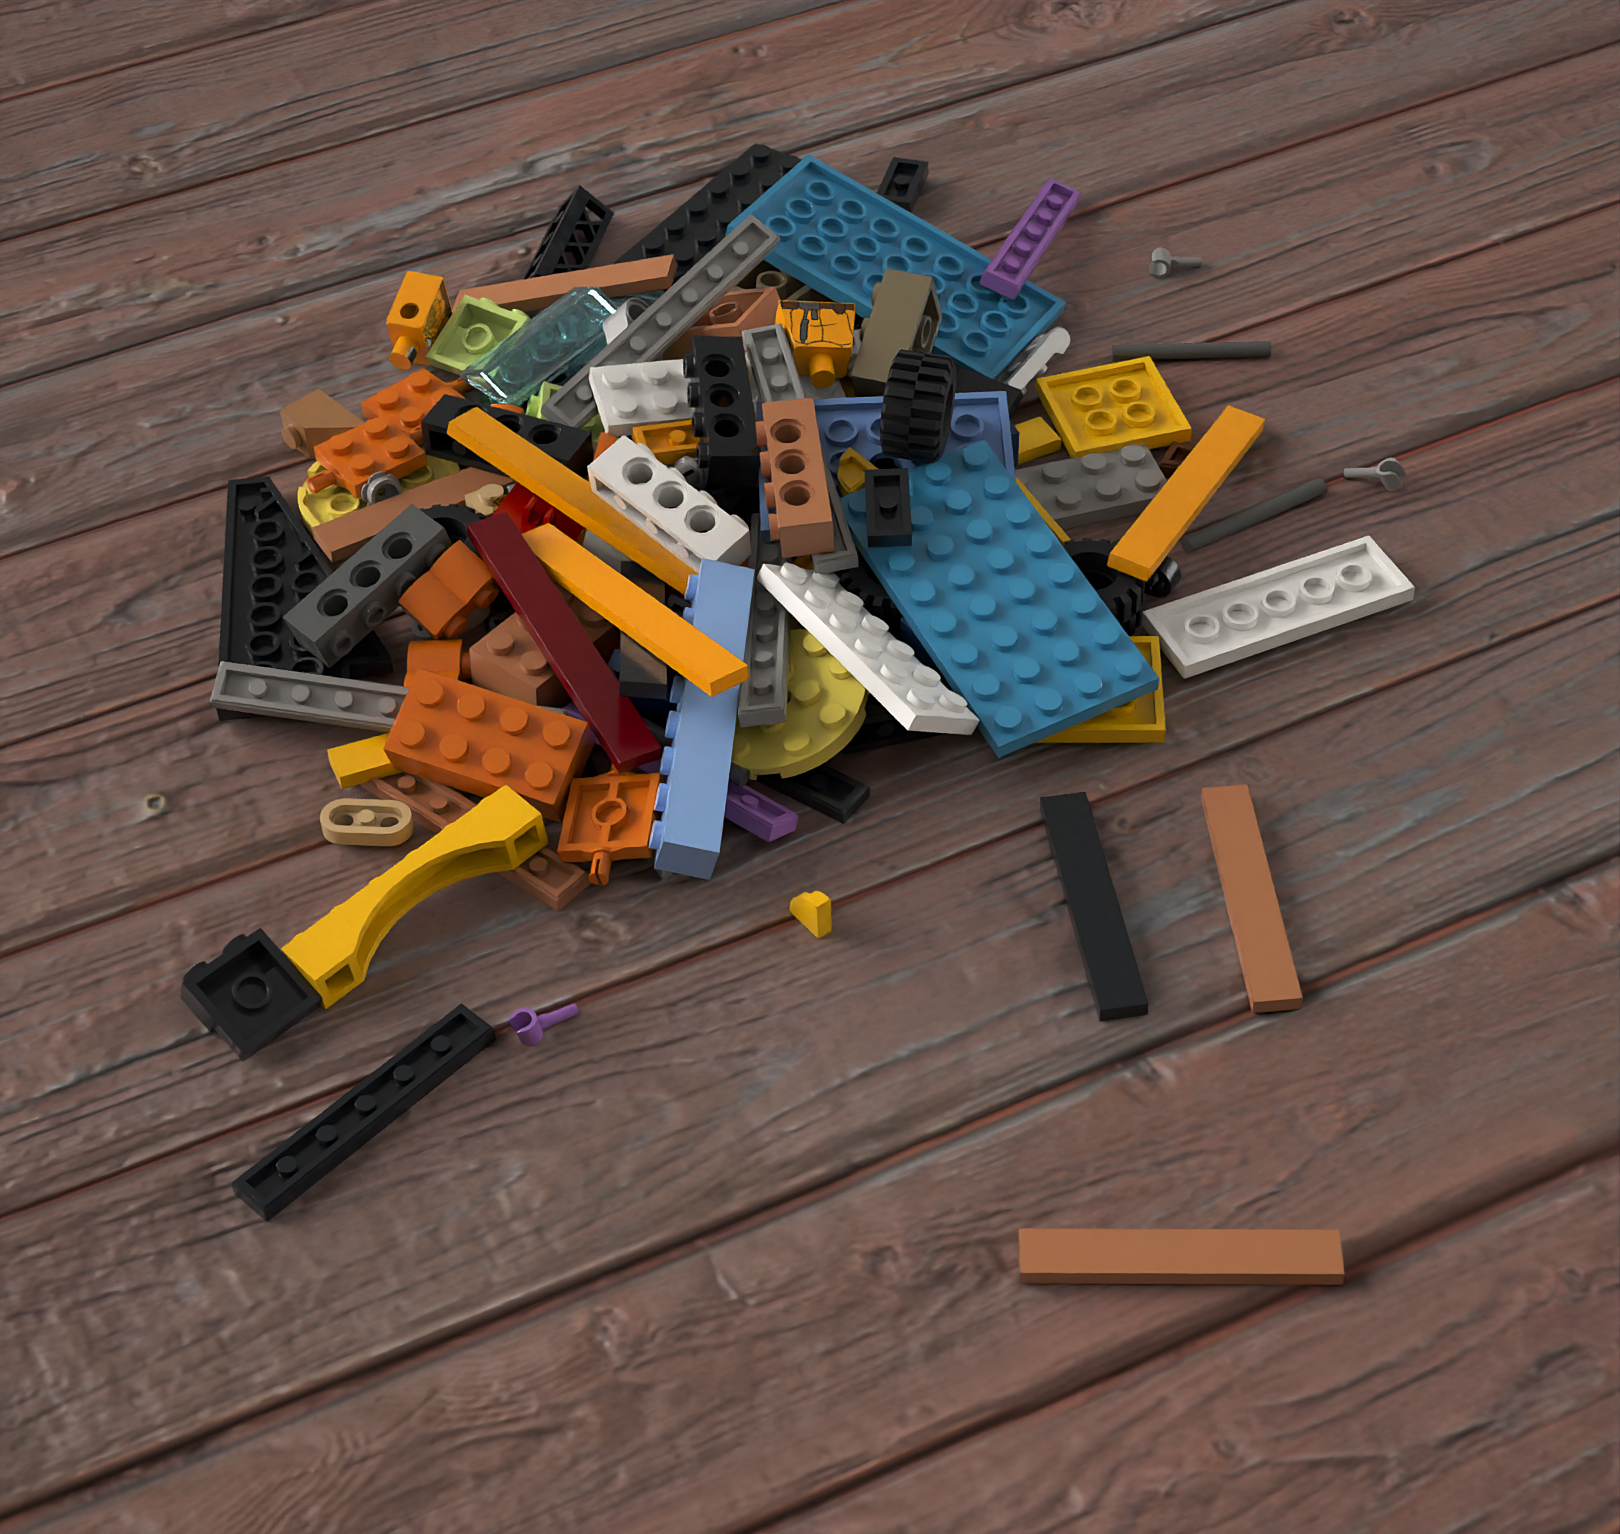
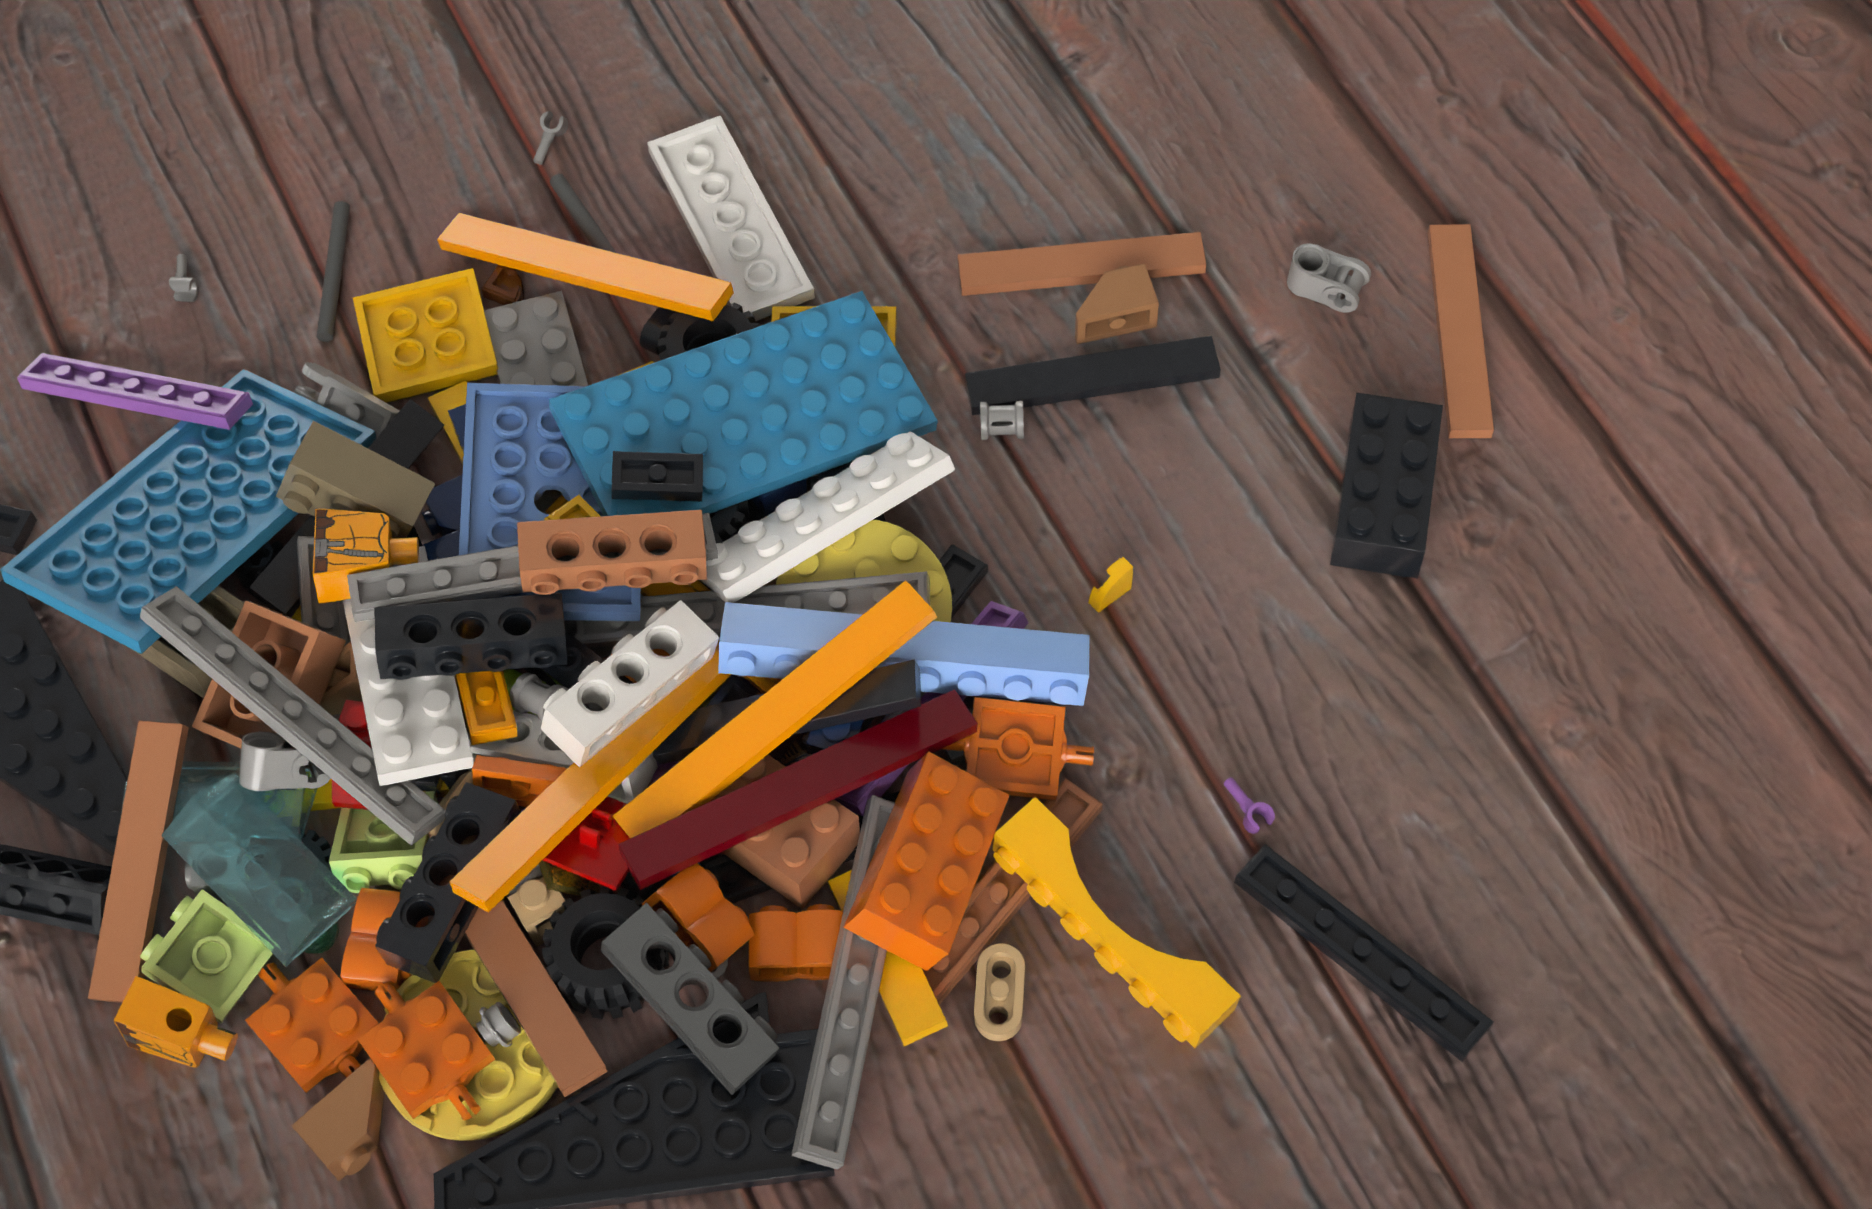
camera: 90 degrees left, 15 degrees up
(249, 993) = (1241, 1071): black plate -> none
(918, 406) = (530, 434): black tyre -> none
(933, 1151) = (1387, 485): none -> black brick
(1022, 820) = (1002, 420): none -> light grey bush
(1185, 917) = (1118, 305): none -> medium nougat slope
(1240, 1120) = (1324, 277): none -> light grey piece

